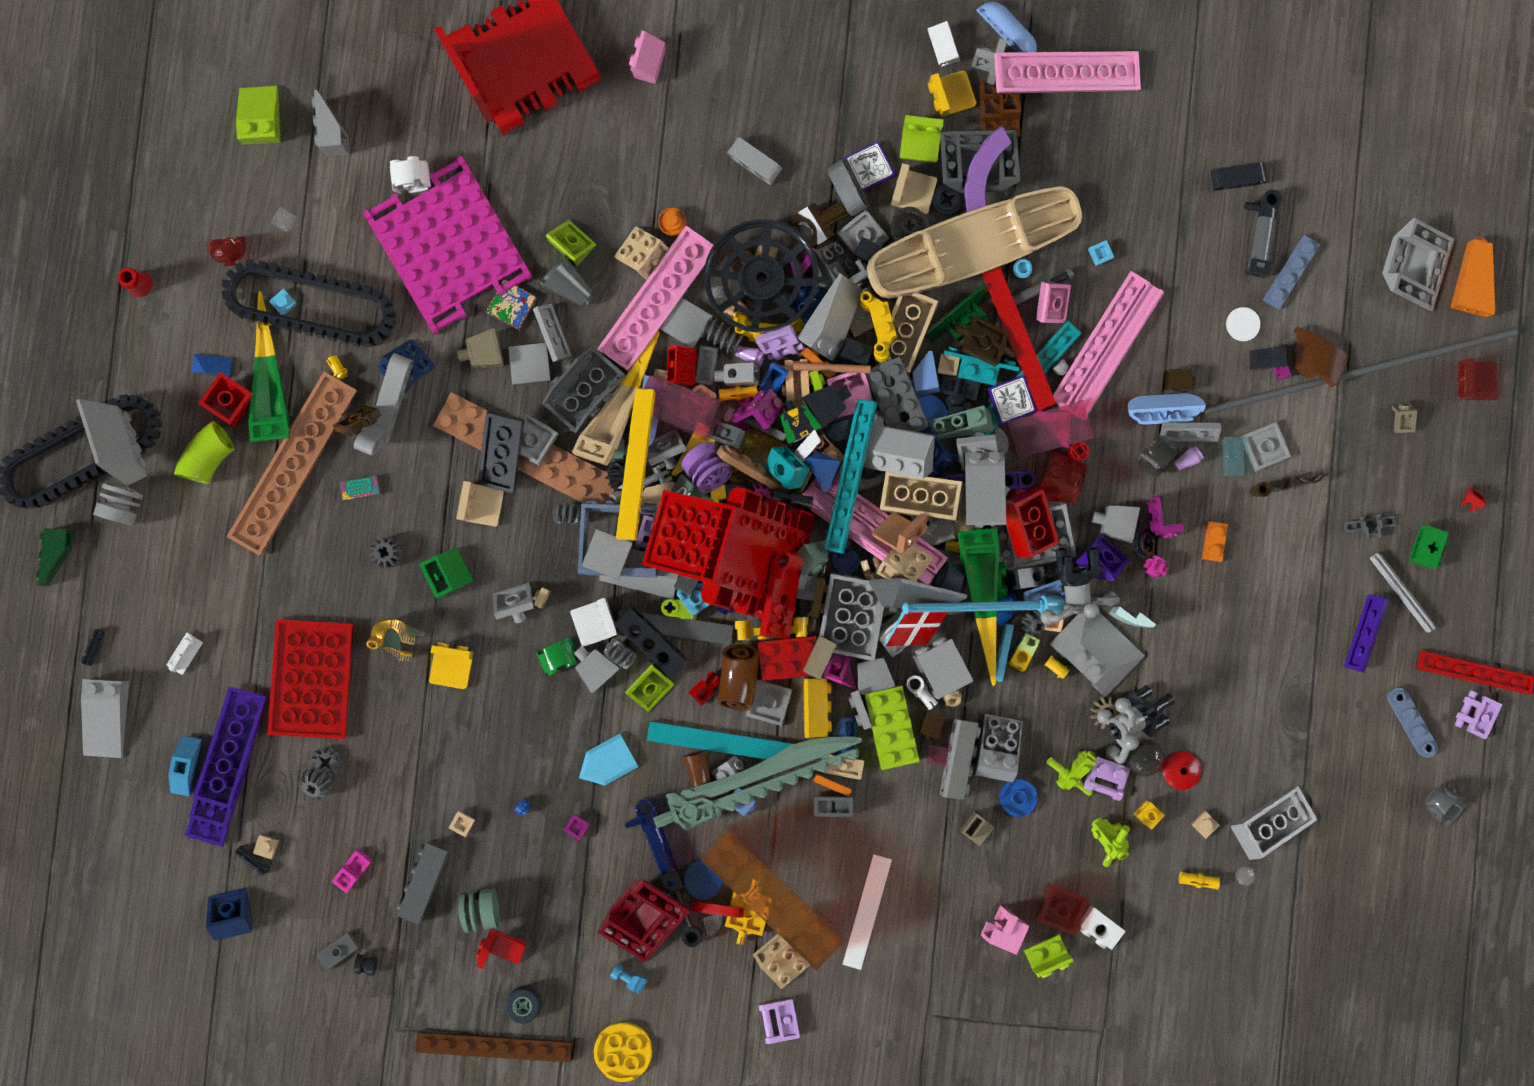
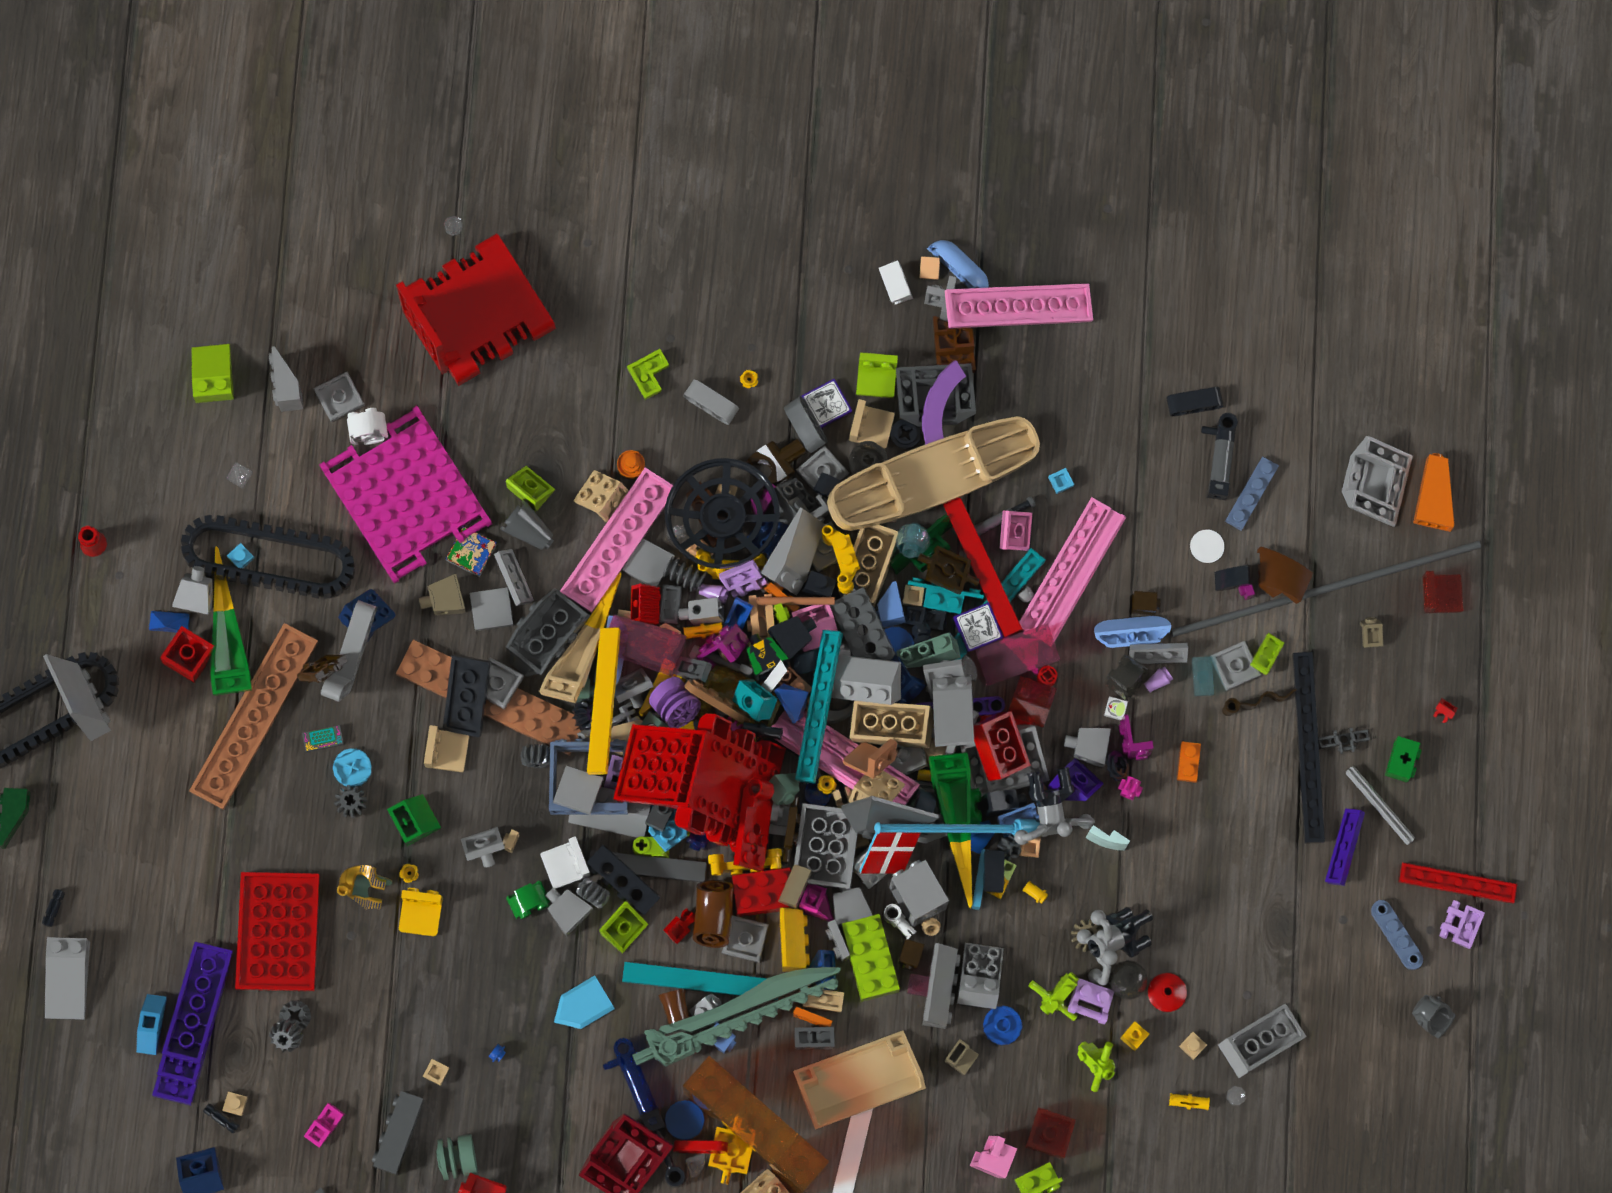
camera: 10 degrees left, 10 degrees down
(118, 504) = (79, 762): light grey wheel -> none
(184, 654) = (147, 911): white hinge -> none
(204, 454) = (165, 710): lime brick -> none
(227, 250) = (184, 506): clear red cylinder -> none
(235, 338) = (195, 592): none -> light grey torso
(336, 366) = (297, 619): yellow pin -> none
(384, 143) = (339, 396): none -> light grey tile
(388, 518) = (352, 767): none -> medium azure tile
(446, 625) = (404, 873): none -> yellow plate
(576, 827) = (553, 1071): magenta plate -> none
(647, 58) = (602, 305): bright pink slope -> none
(688, 127) = (644, 370): none -> lime plate
(788, 138) = (749, 374): none -> yellow plate
(860, 554) = (826, 779): none -> yellow plate
(876, 846) = (859, 1079): none -> tan slope
(950, 309) = (912, 540): none -> clear light blue plant
(951, 93) = (905, 329): yellow bracket -> none
(978, 30) = (929, 268): none -> light nougat slope
(1017, 647) = (993, 871): none -> black slope
(1022, 268) = (983, 498): medium azure plate -> none
(1097, 651) = (1076, 874): light grey slope -> none
(1111, 933) = (1103, 1153): white brick -> none
(1144, 485) = (1115, 708): none -> tile
(1298, 436) = (1267, 654): none -> lime plate
(1335, 532) = (1308, 747): none -> black plate

